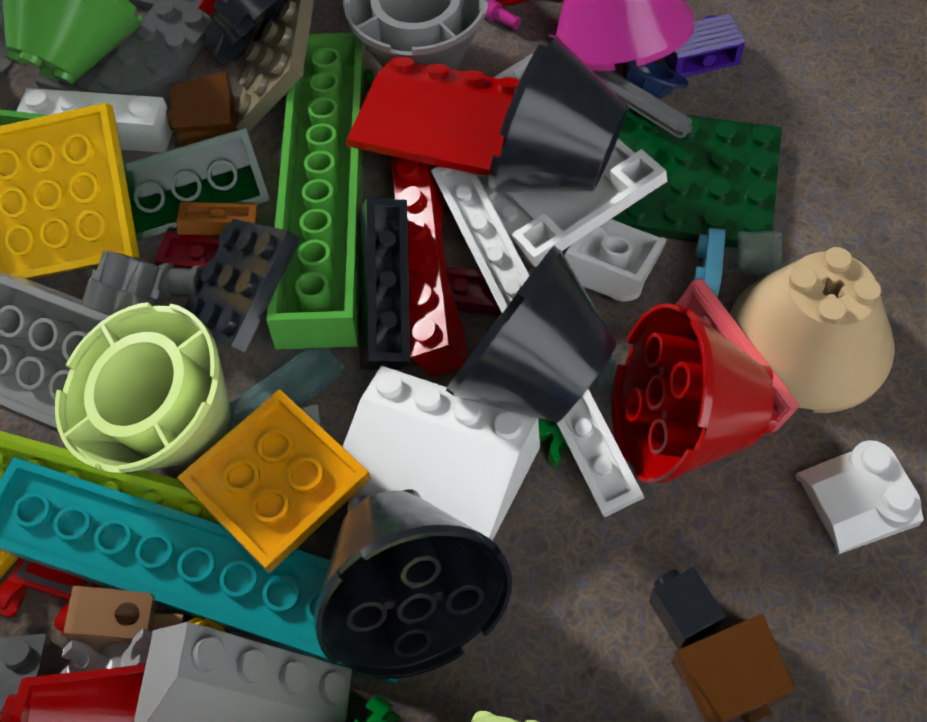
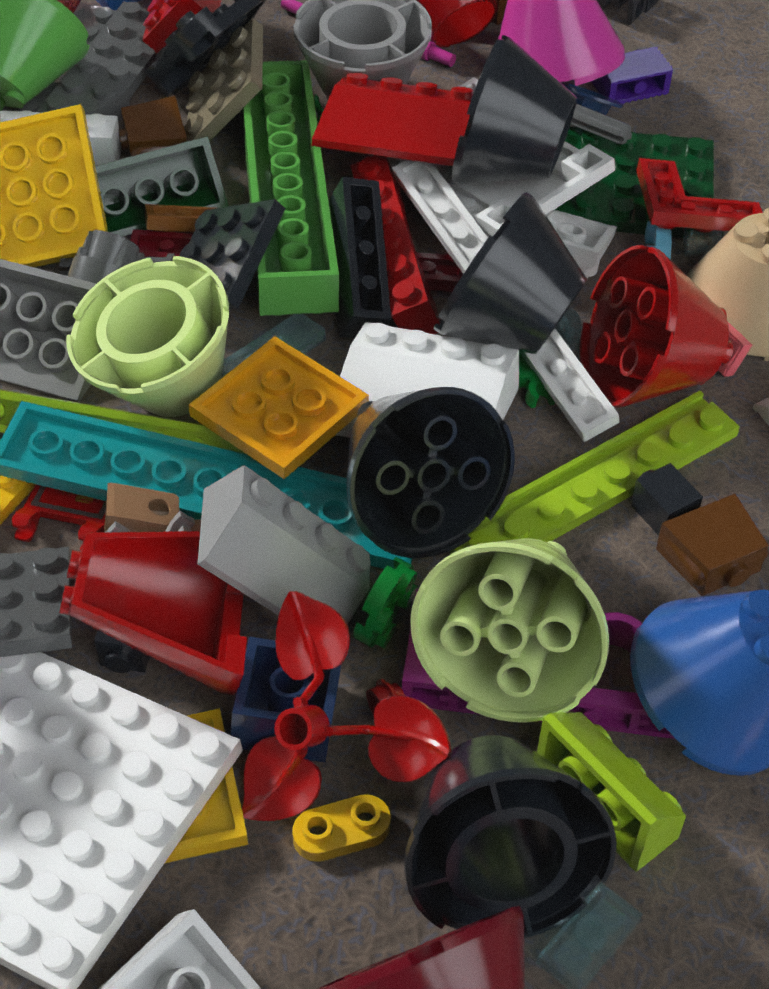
camera: 10 degrees left, 10 degrees down
(613, 572) = (607, 473): none -> lime plate
(728, 229) = (671, 208): none -> red plate

